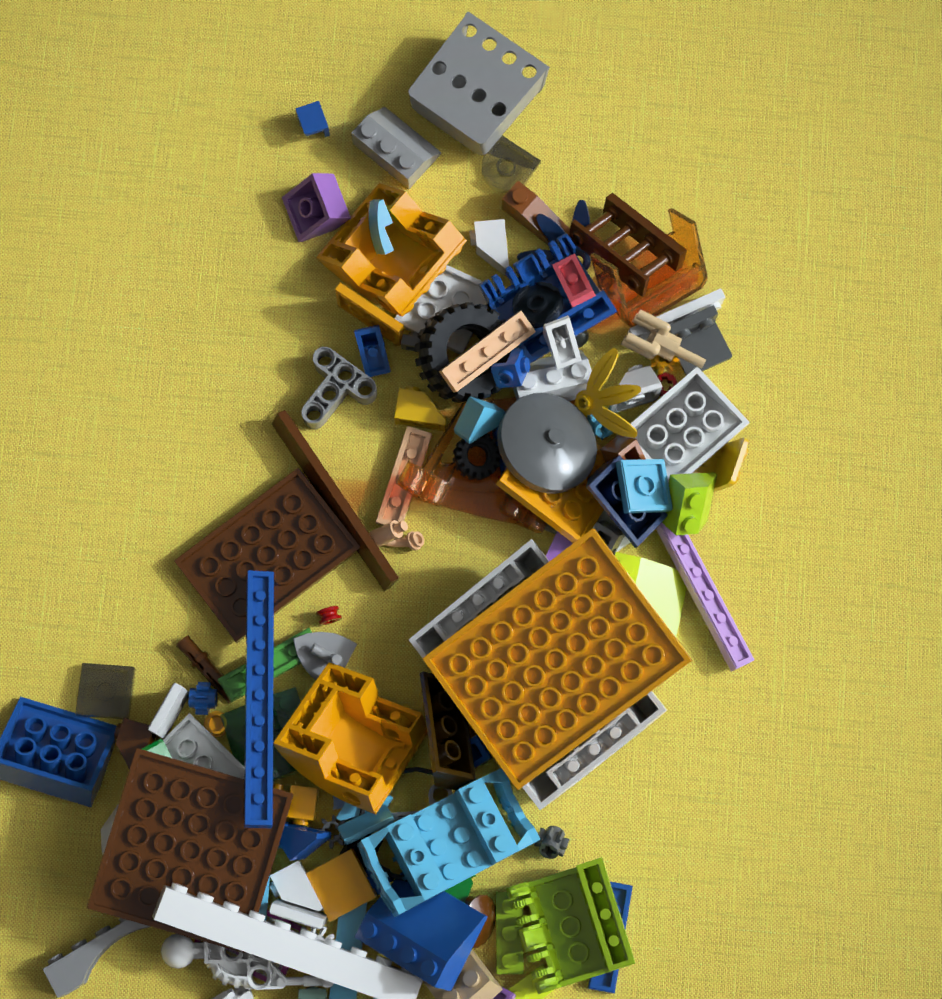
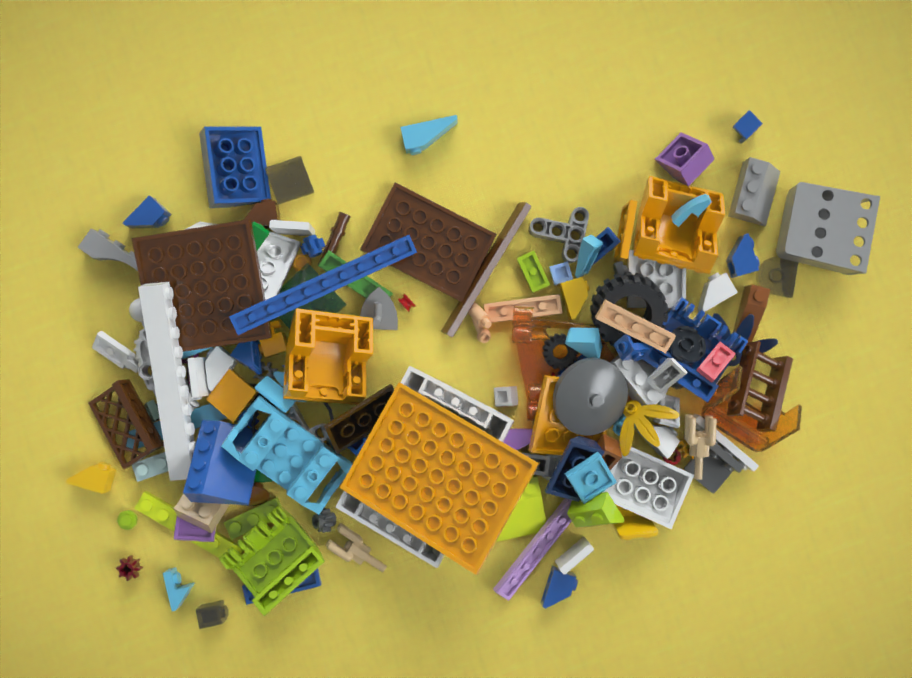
camera: 65 degrees right, 10 degrees up
(61, 889) = (148, 215): none -> blue slope
(132, 501) = (423, 134): none -> medium azure slope
(364, 445) = (533, 271): none -> lime plate
(373, 368) = (588, 252): none -> medium azure slope
(382, 413) = (560, 273): none -> light blue plate
(465, 195) = (742, 257): none -> blue slope
(501, 547) = (506, 396): none -> white slope
(603, 820) = (354, 549): none -> tan plant
(621, 366) = (673, 403): none -> white slope
(731, 551) = (574, 555): none -> white tile
(762, 590) = (558, 587): none -> blue slope

